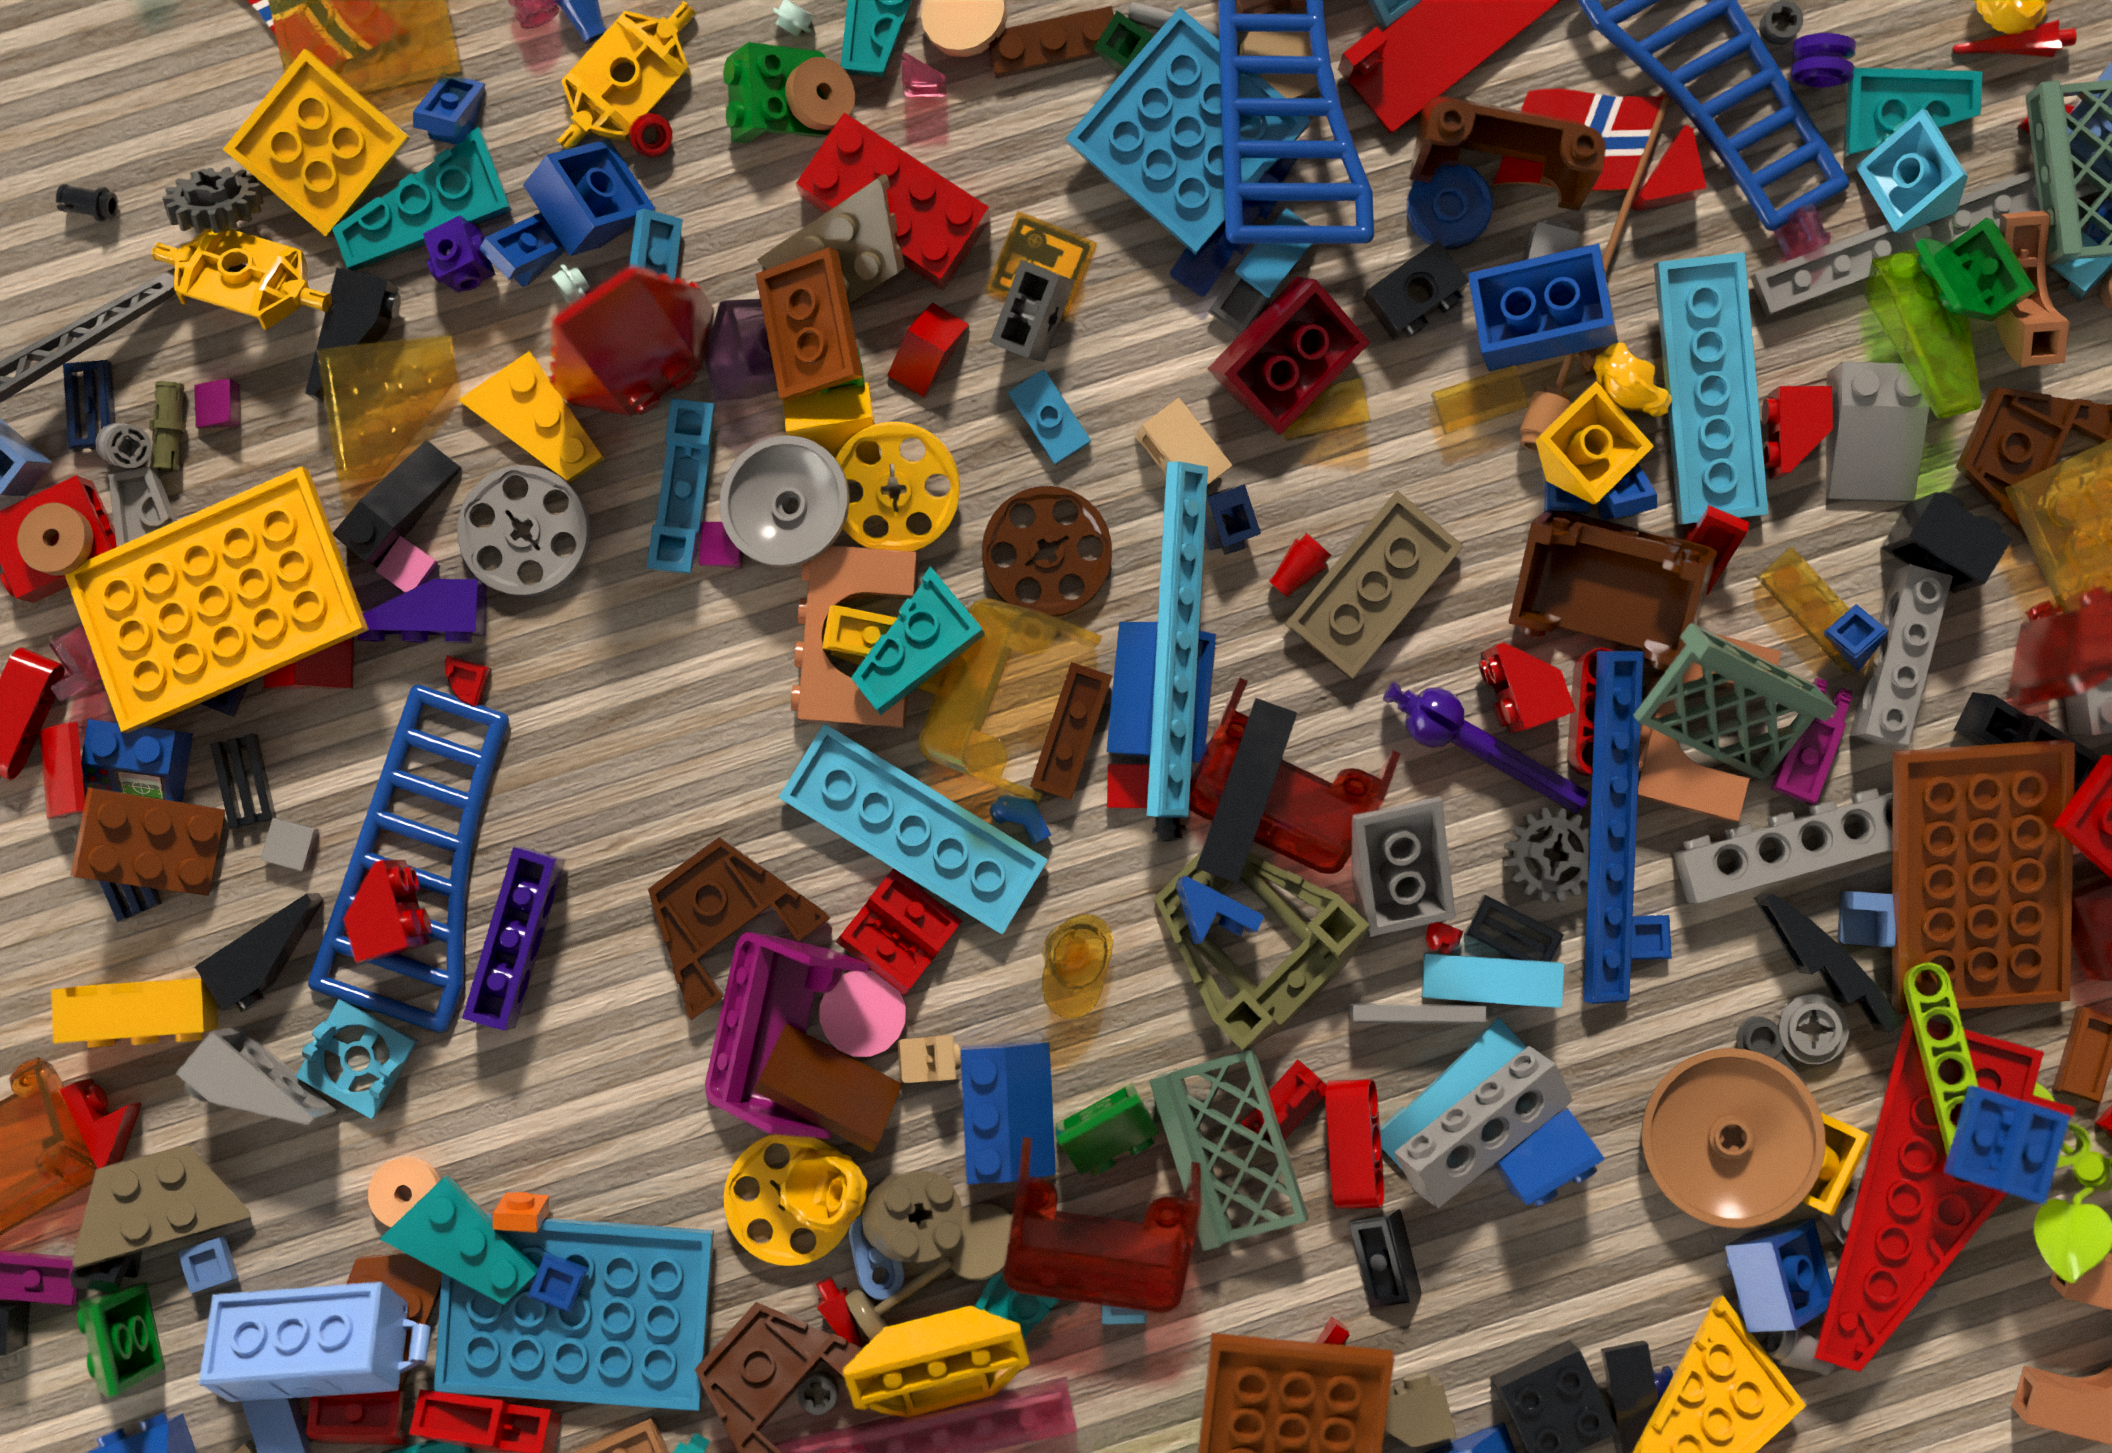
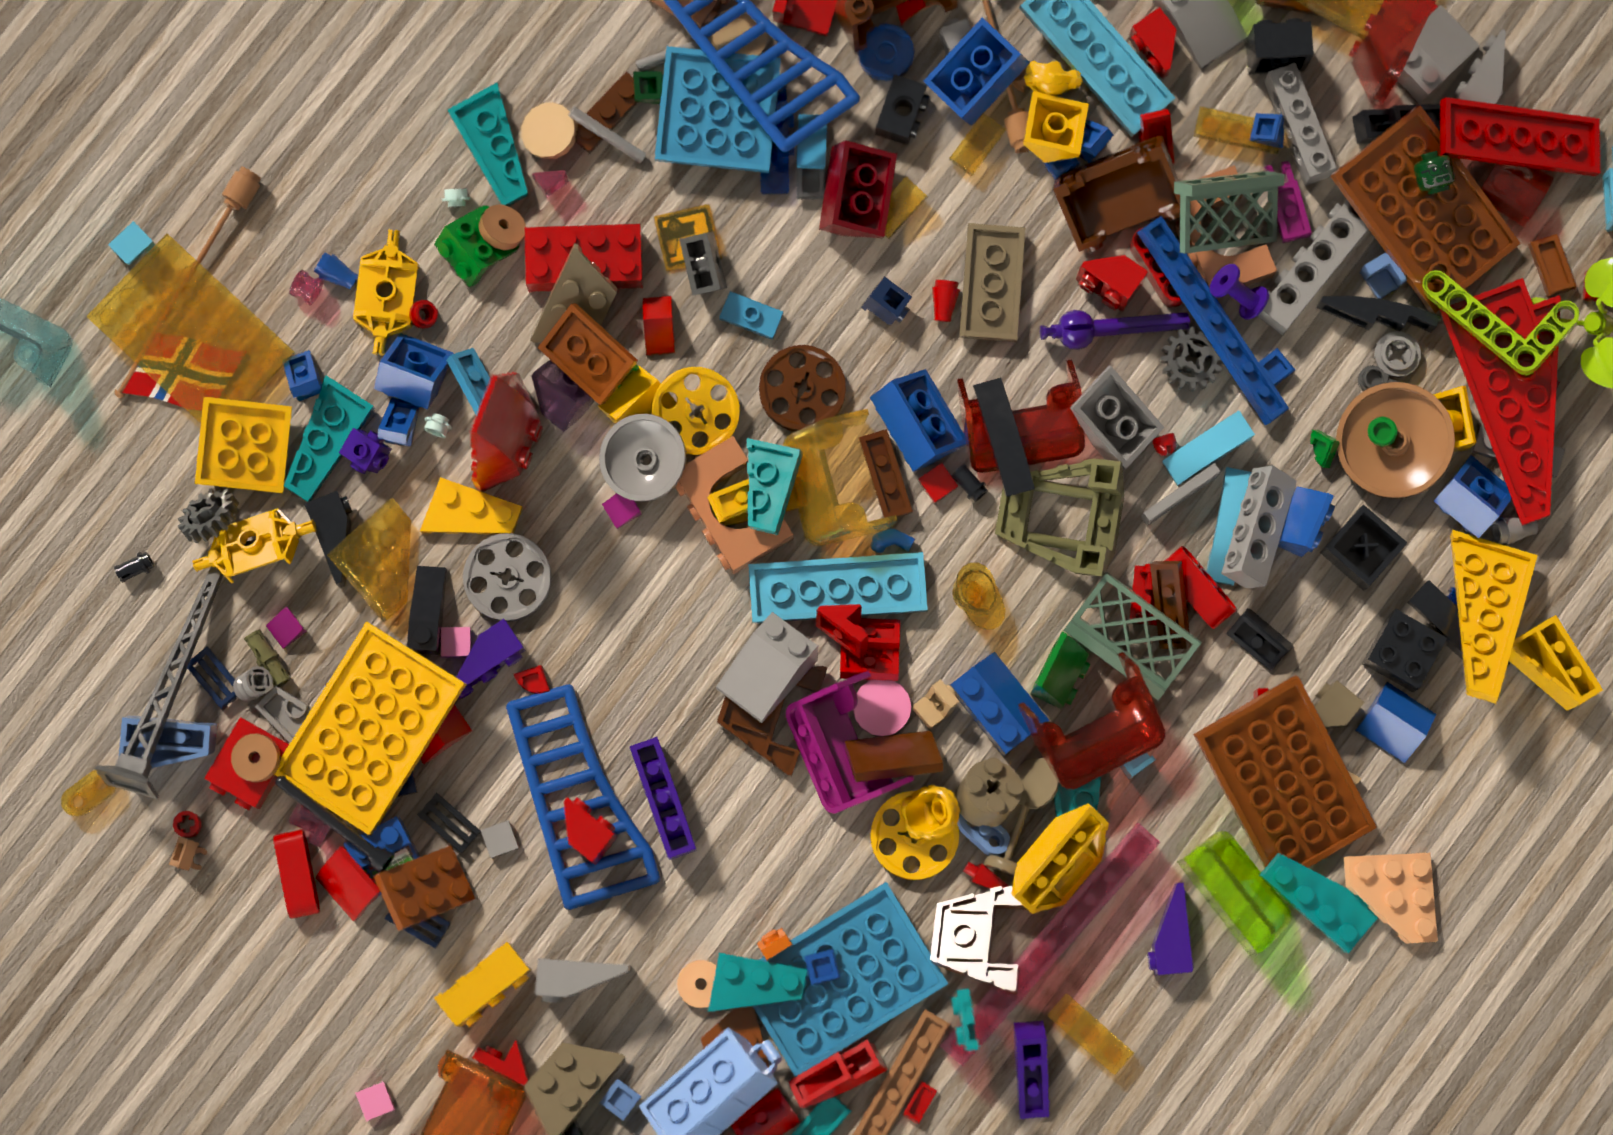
camera: 35 degrees left, 5 degrees down
(110, 767) = (378, 857): none -> black piece
(255, 959) = (526, 916): black slope -> none
(313, 1067) = (600, 909): medium azure piece -> none
(683, 486) = (578, 491): dark azure slope -> none
(752, 869) = (768, 667): none -> light grey slope
(808, 1402) = (1005, 939): dark grey bush -> none
(880, 878) = (842, 625): none -> red slope
(1030, 68) = (607, 134): none -> light grey bar
(1177, 640) = (909, 383): medium azure tile -> none
(1178, 436) = (837, 282): tan hinge -> none
(1203, 904) = (1024, 514): blue slope -> none
(1309, 1135) = (1170, 599): none -> reddish brown plate
(1480, 917) = (1177, 420): black tile -> none
(1596, 1242) = (1363, 547): none -> black brick
(1637, 1080) = (1324, 448): none -> green tile
(1678, 836) = (1227, 282): none -> dark purple piece
(1724, 1116) = (1382, 431): none -> green tile
(2006, 1144) = (1534, 336): blue slope -> none
(2029, 842) = (1434, 173): none -> dark green head

